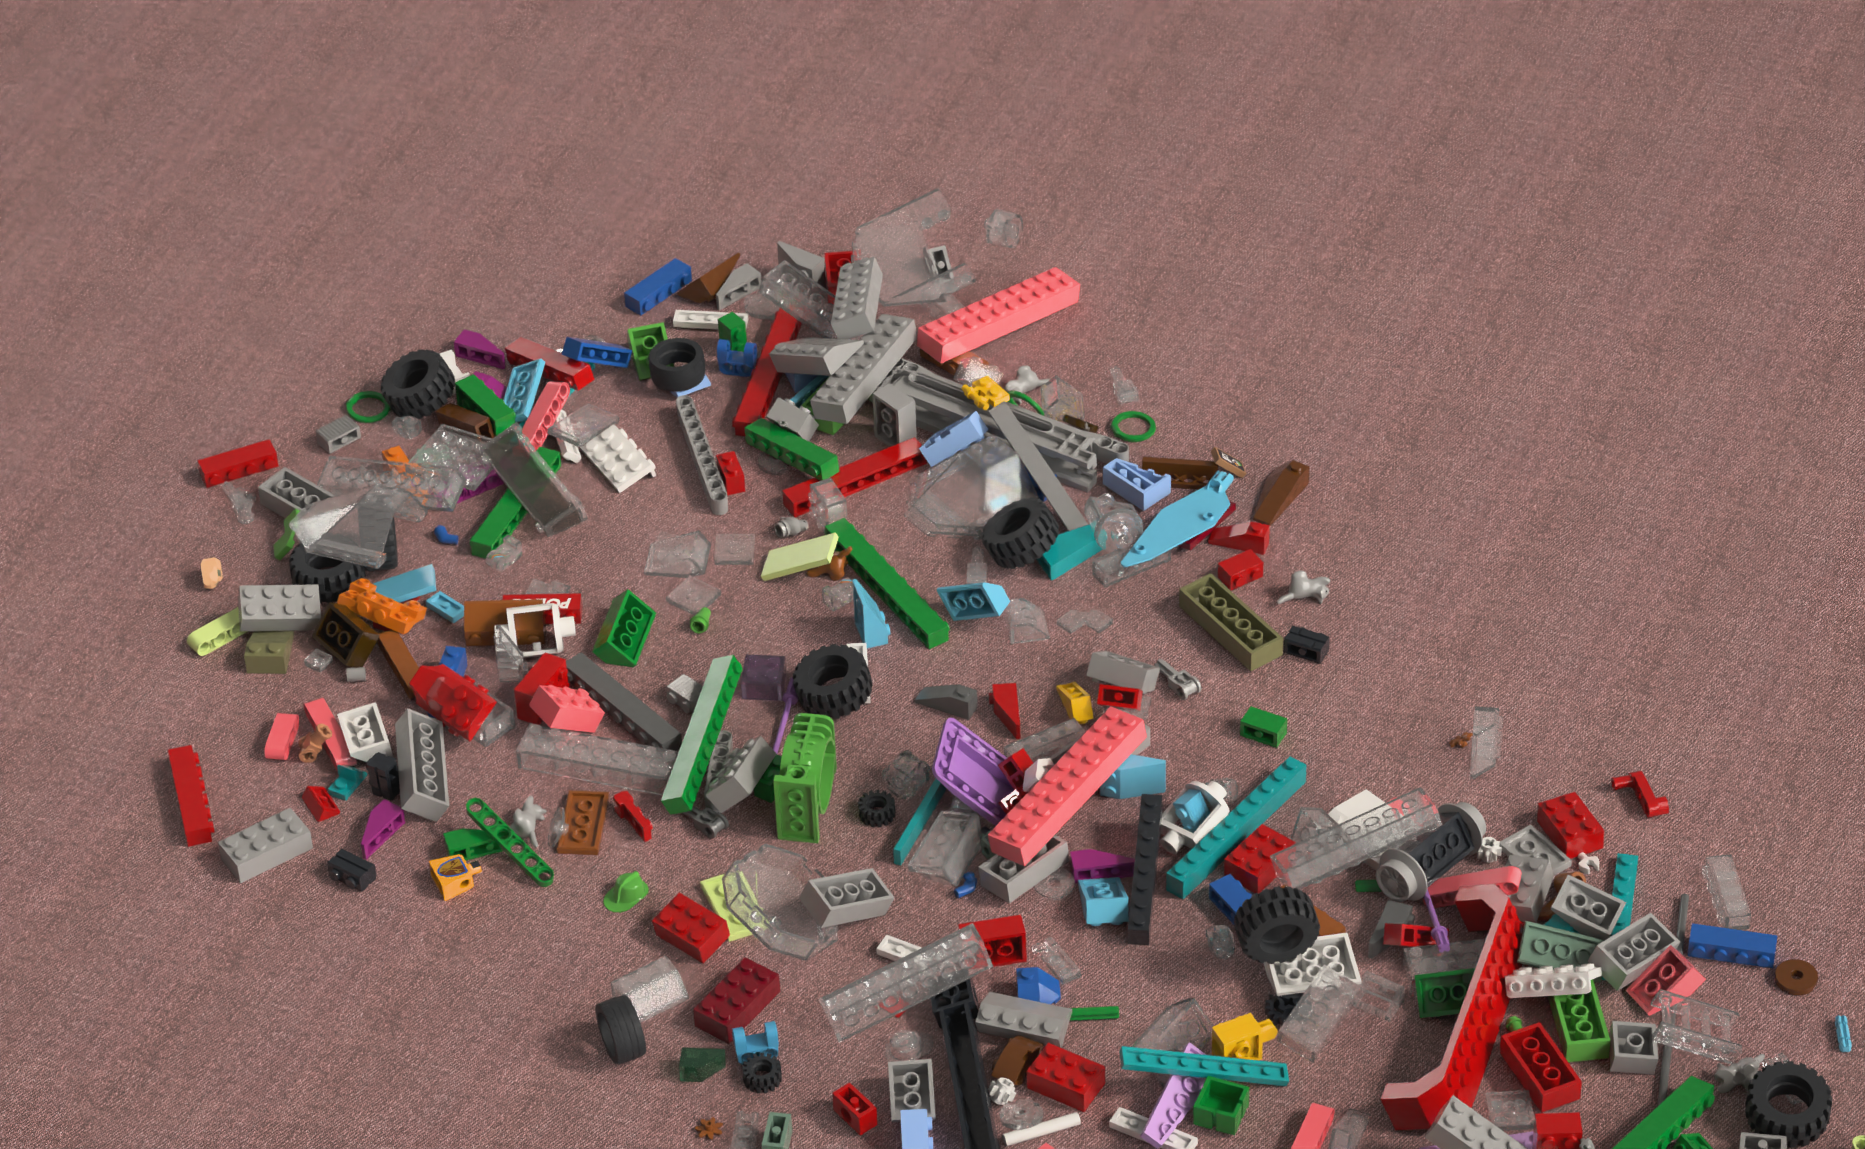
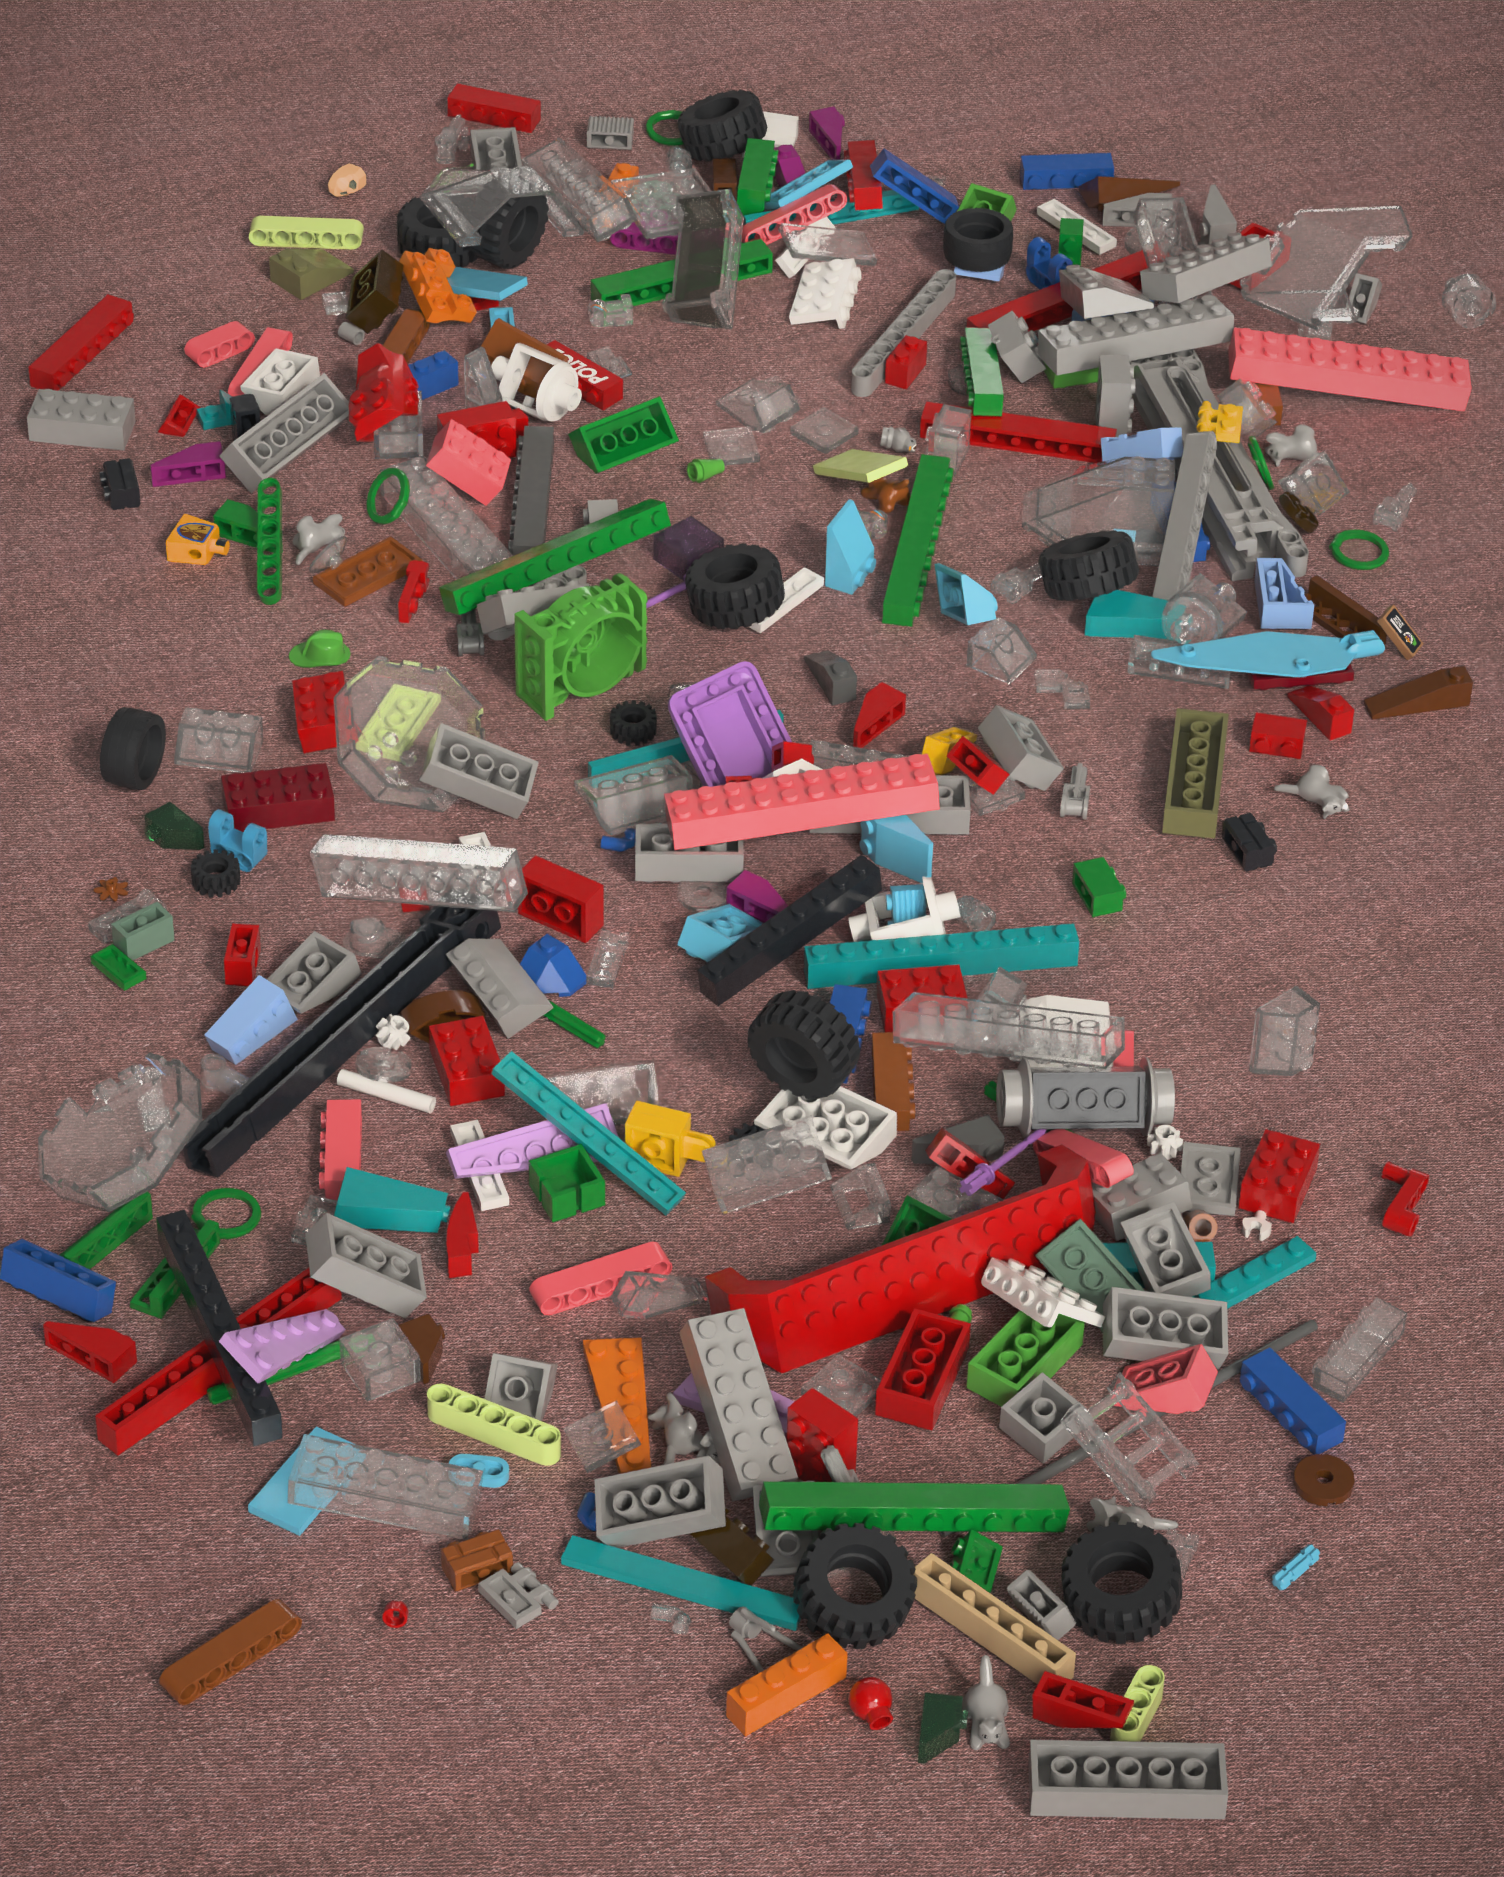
camera: 40 degrees right, 0 degrees up
(278, 607) = (348, 232): light grey brick -> none
(312, 743) = (230, 362): nougat connector -> none
(443, 536) = (583, 267): blue arm -> none
(558, 769) = (400, 504): none -> green piece

